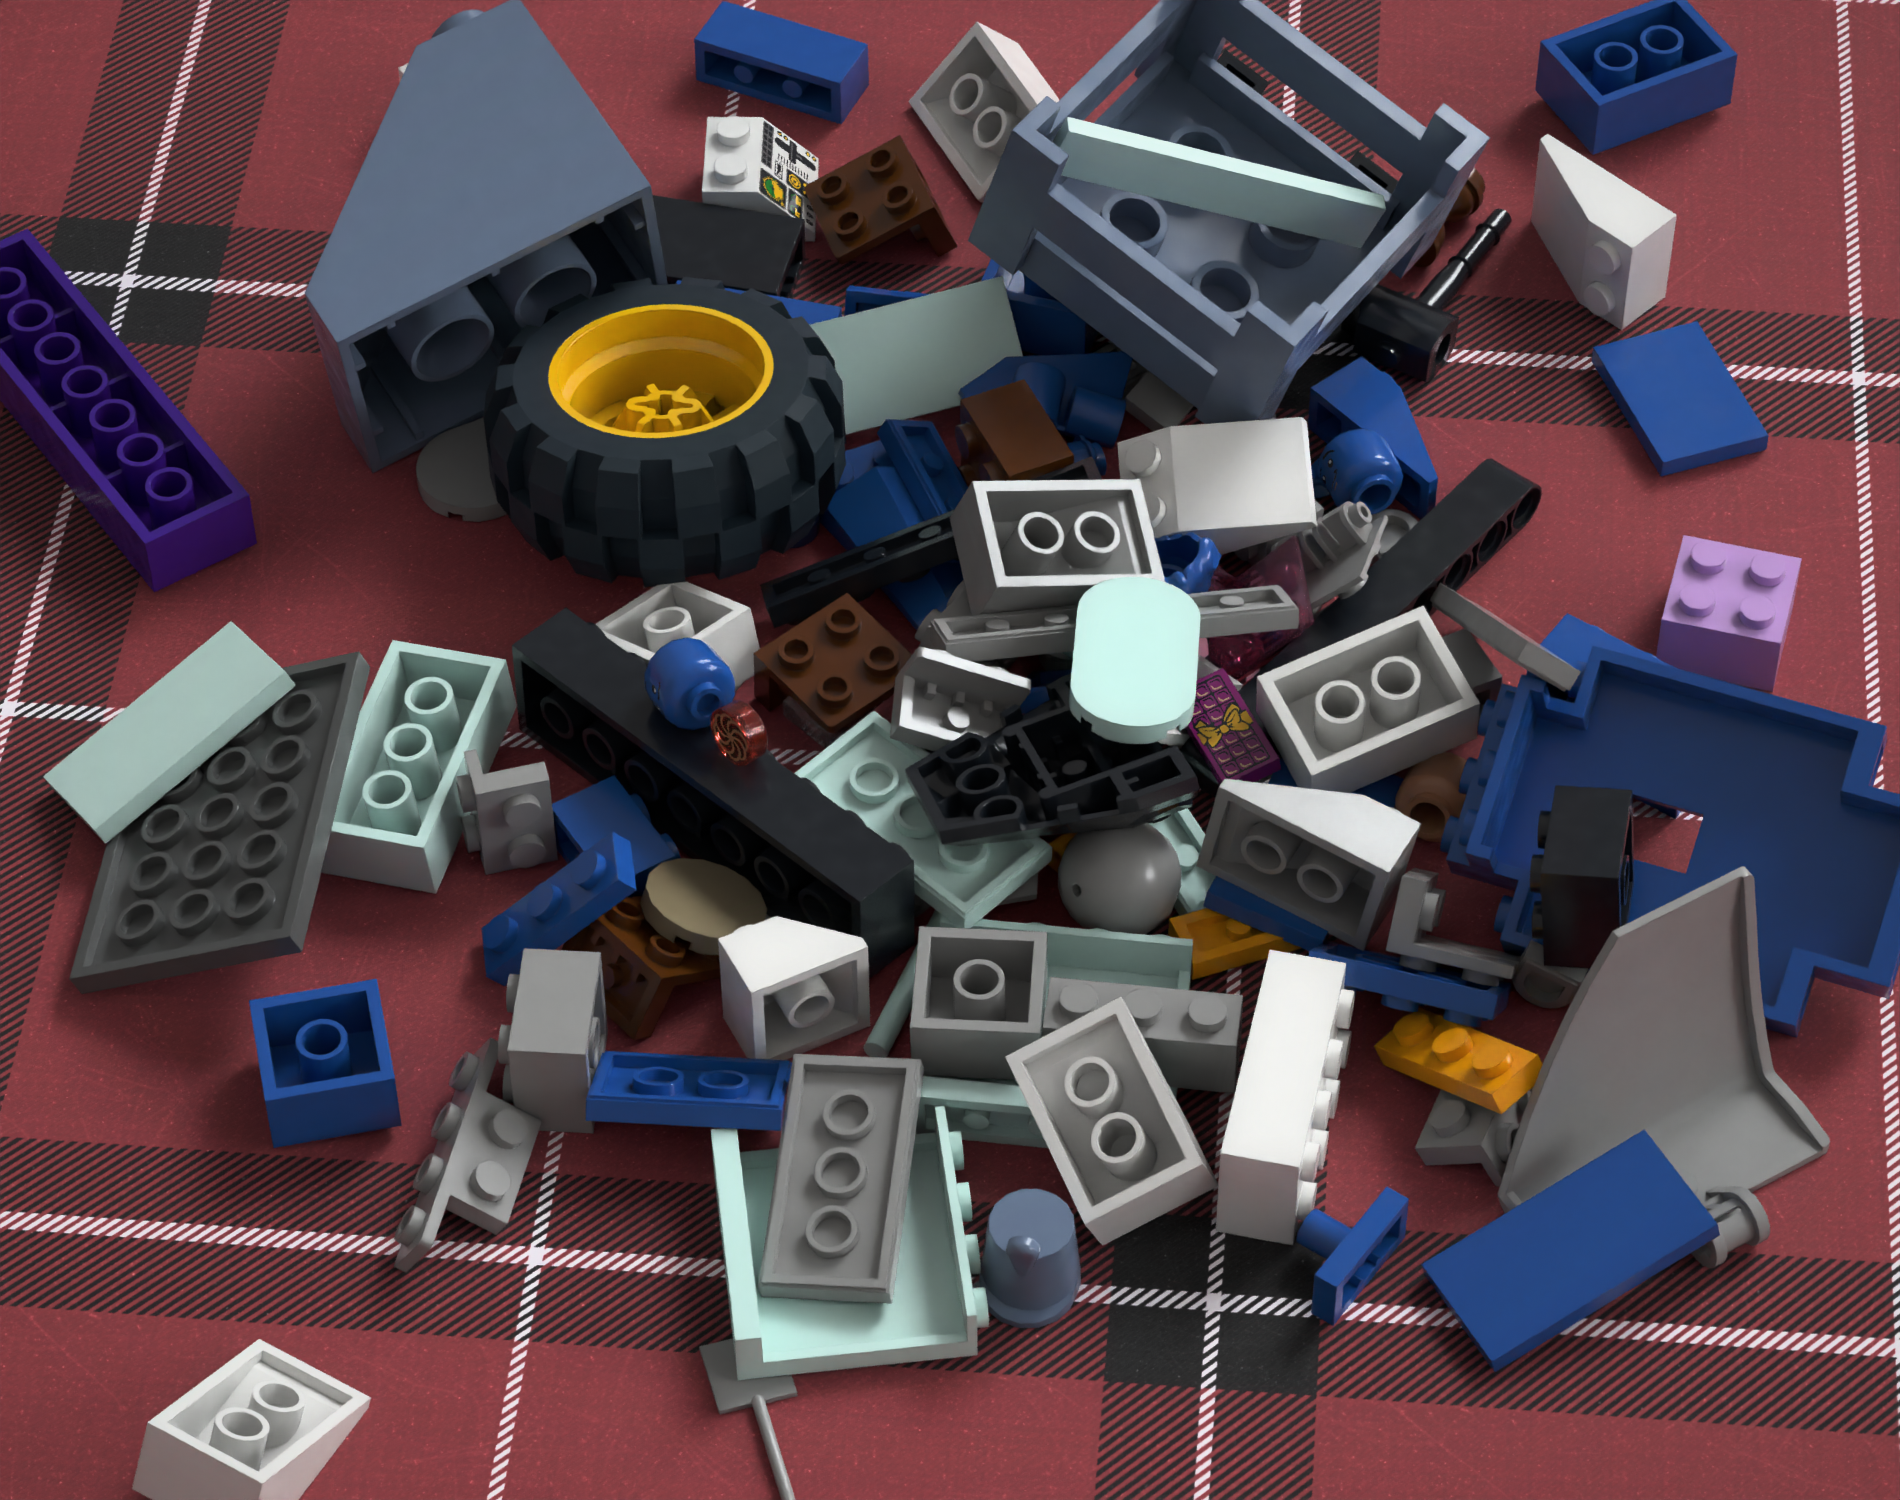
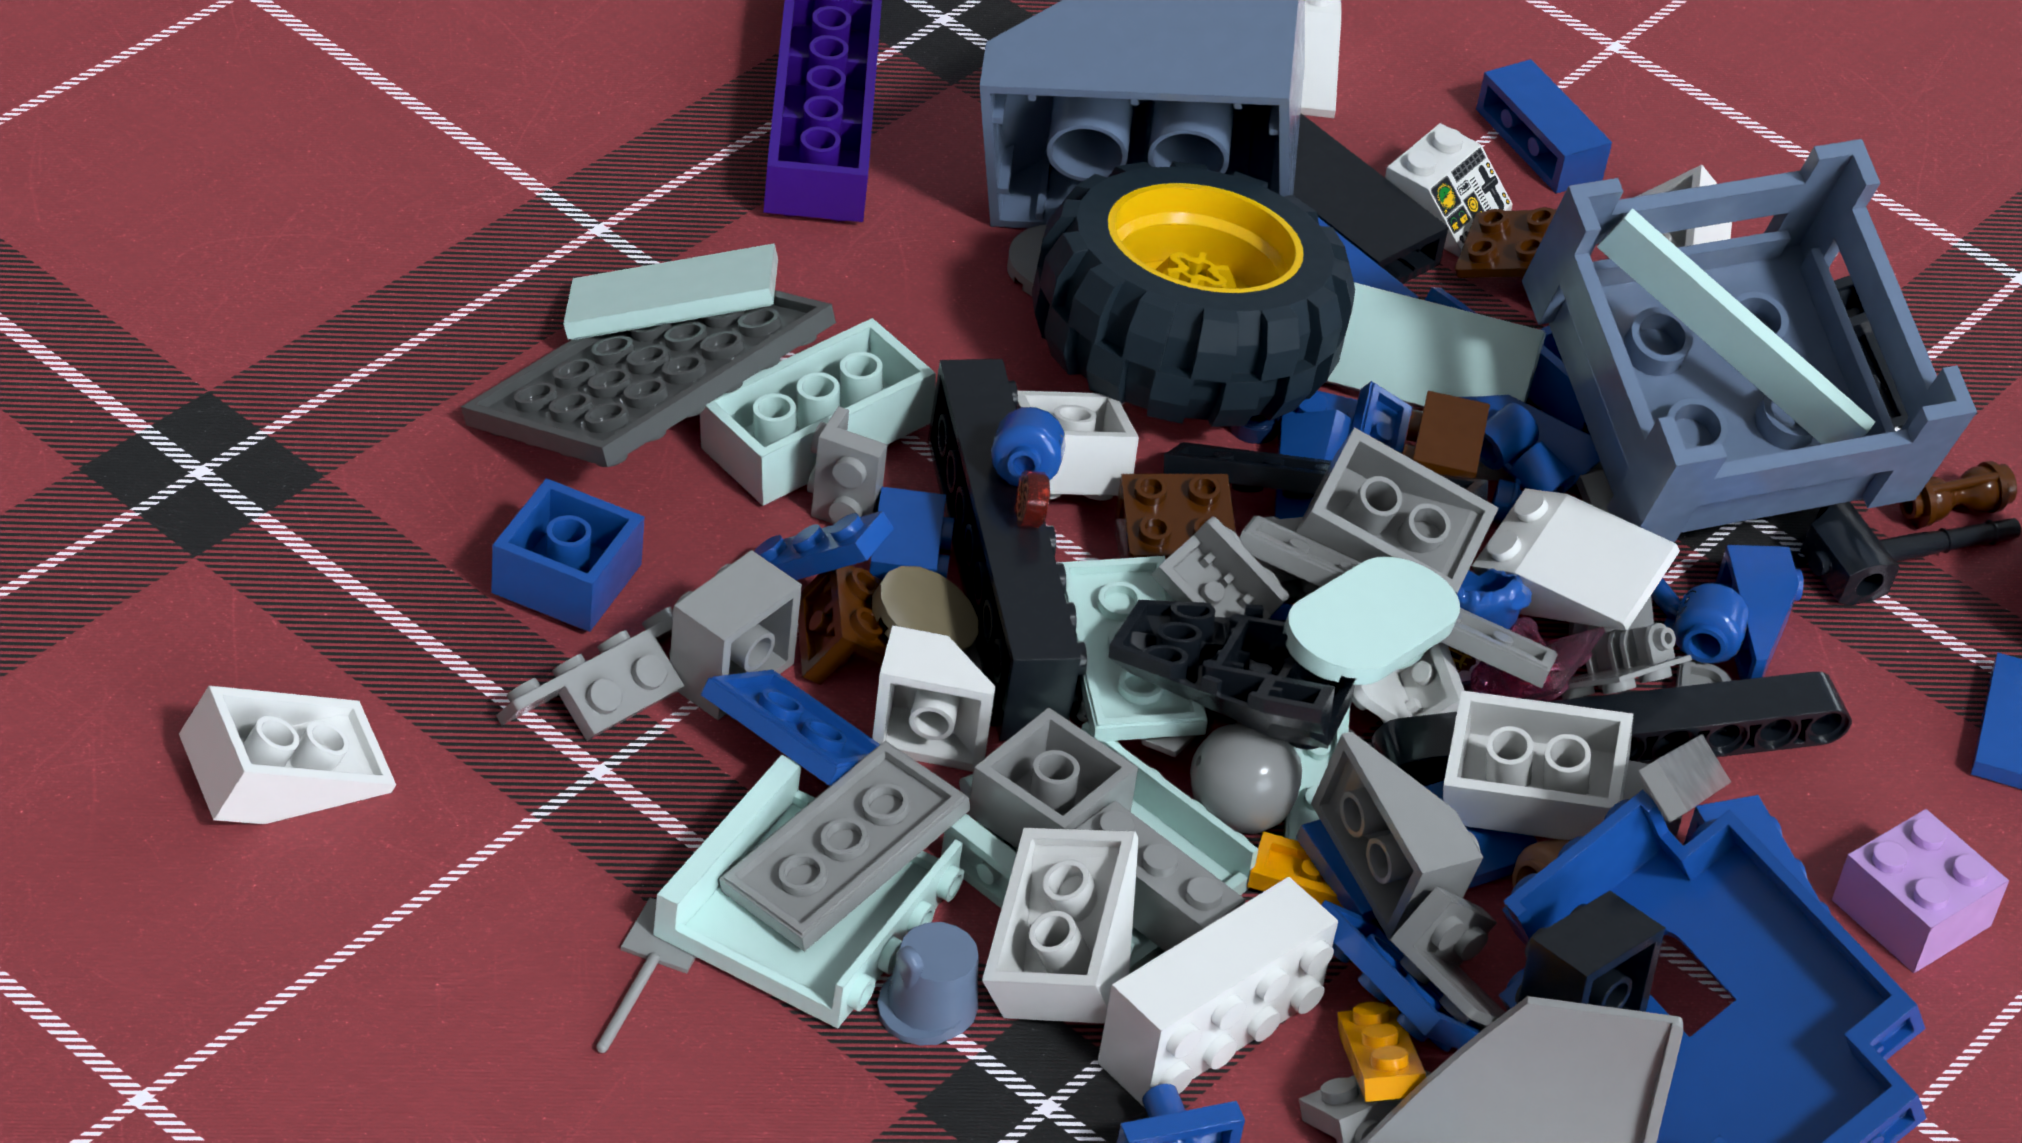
camera: 30 degrees right, 5 degrees down
(1229, 733) = (1421, 725): magenta tile -> none

